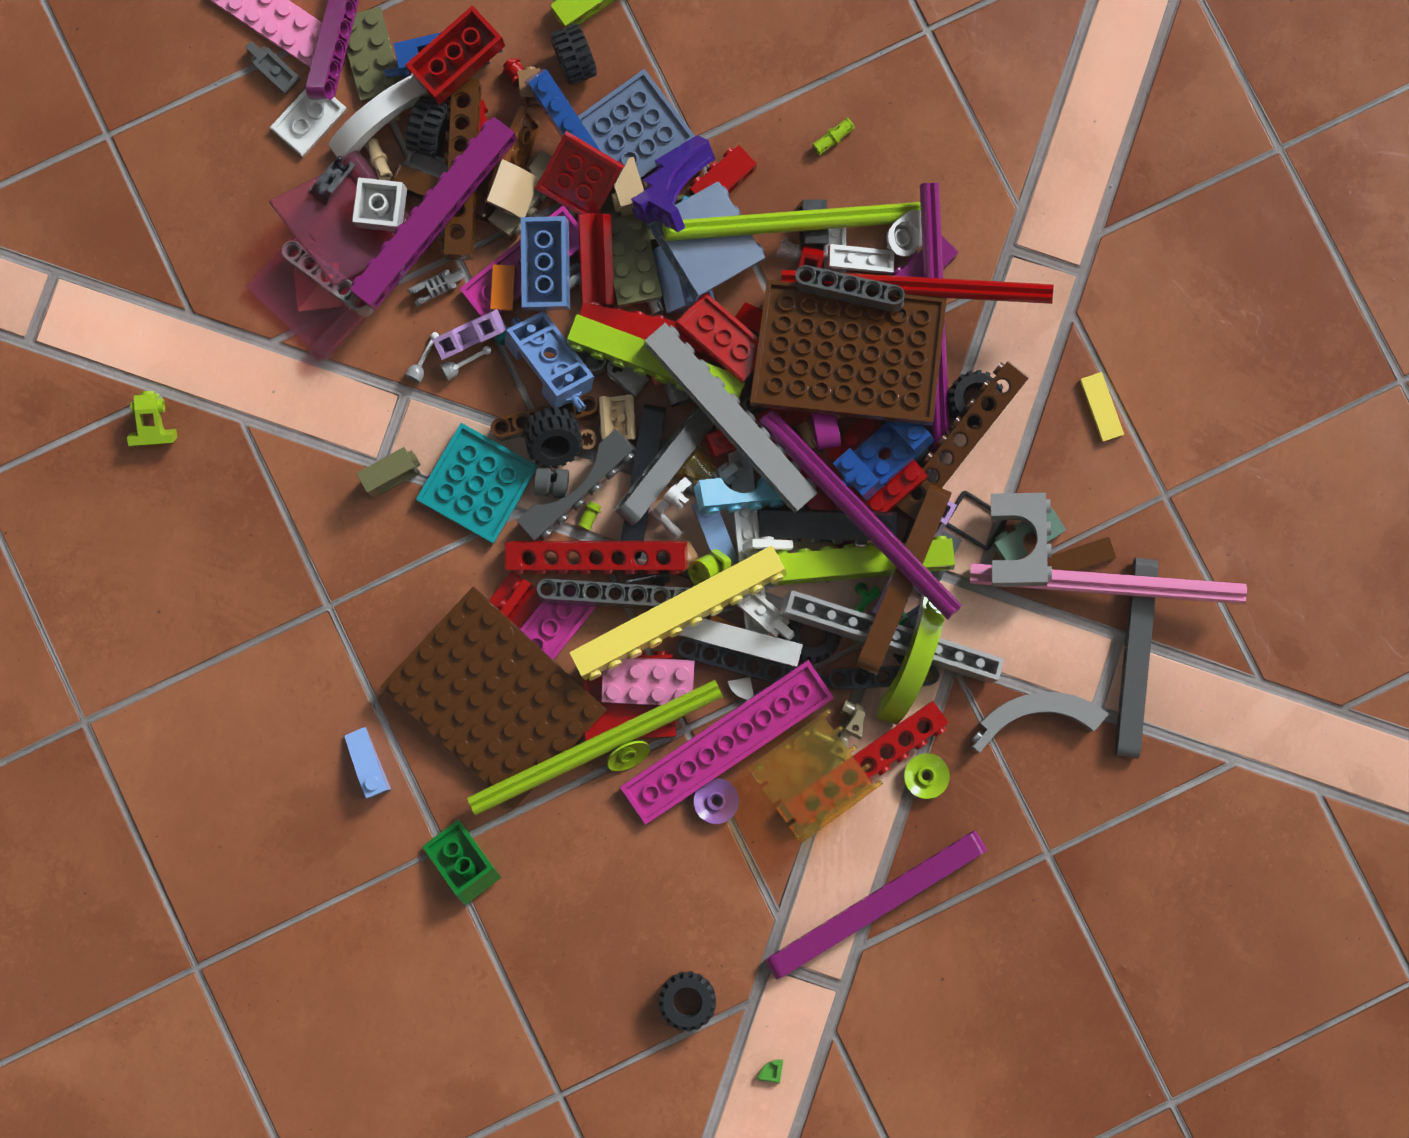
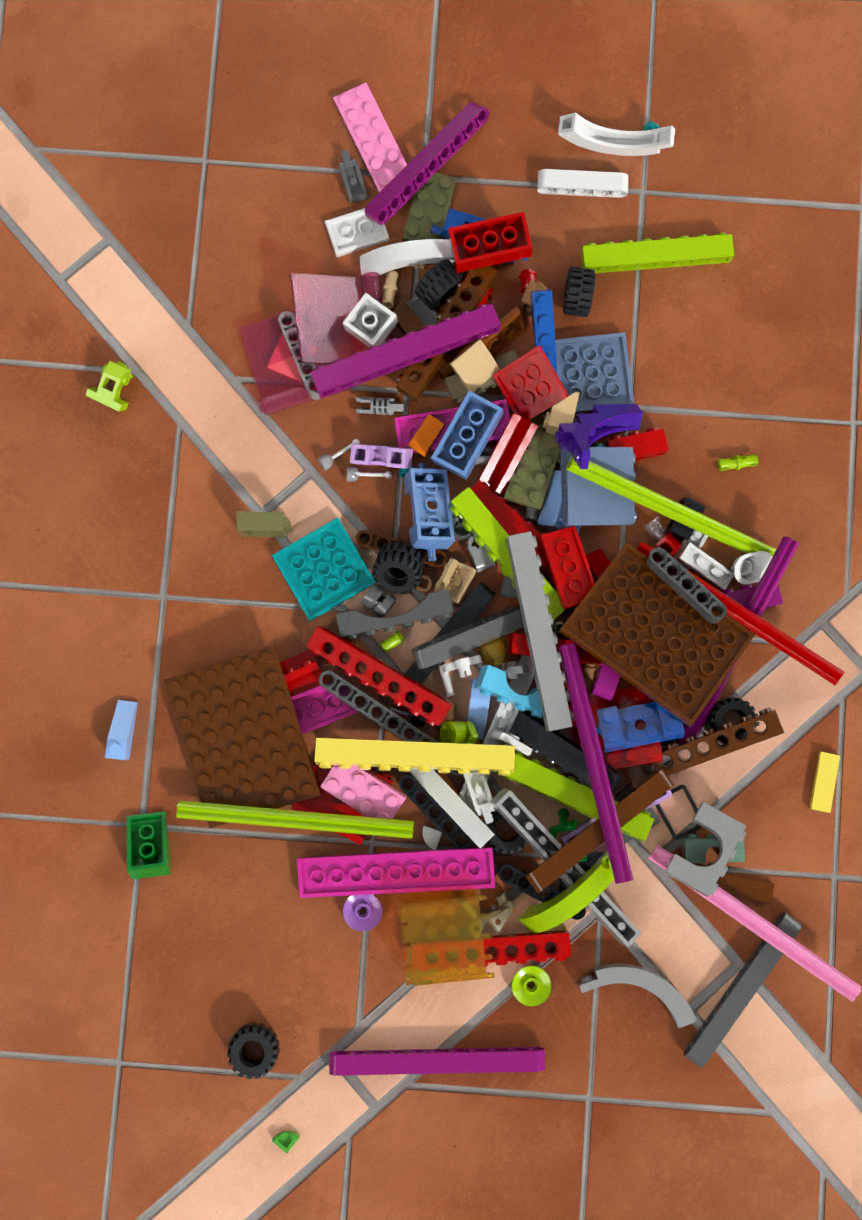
camera: 30 degrees right, 0 degrees up
(331, 180) = (346, 285): black hinge -> none
(628, 756) = (316, 839): lime dish -> none

